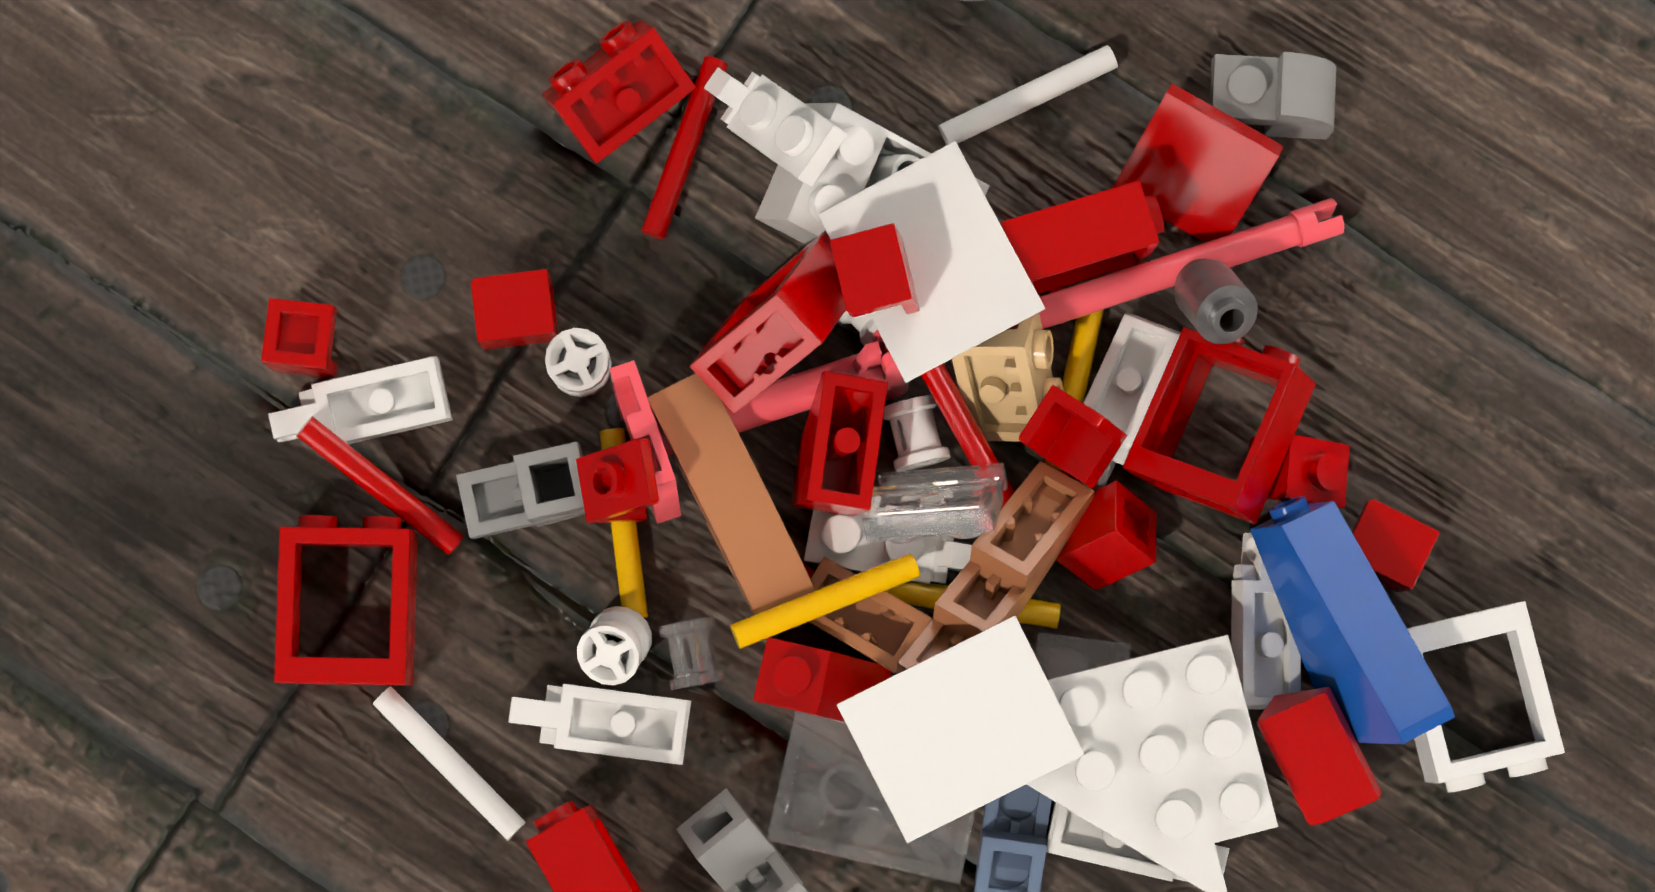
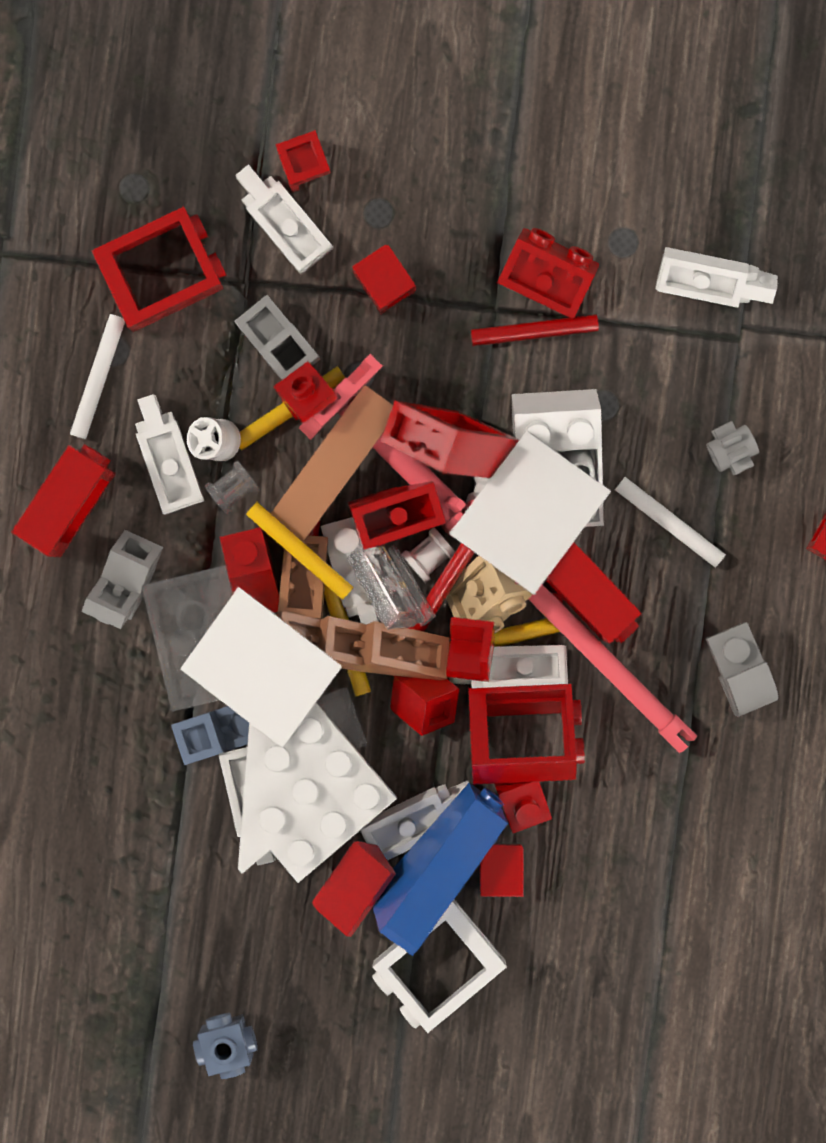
camera: 70 degrees right, 5 degrees up
(379, 485) = (239, 252): red bar -> none
(573, 352) = (370, 323): white wheel -> none
(777, 124) = (571, 379): white hinge -> none
(874, 271) = (503, 482): red panel -> none
(1199, 165) = (674, 645): red tile -> none
(1215, 301) = (594, 694): flat silver brick -> none

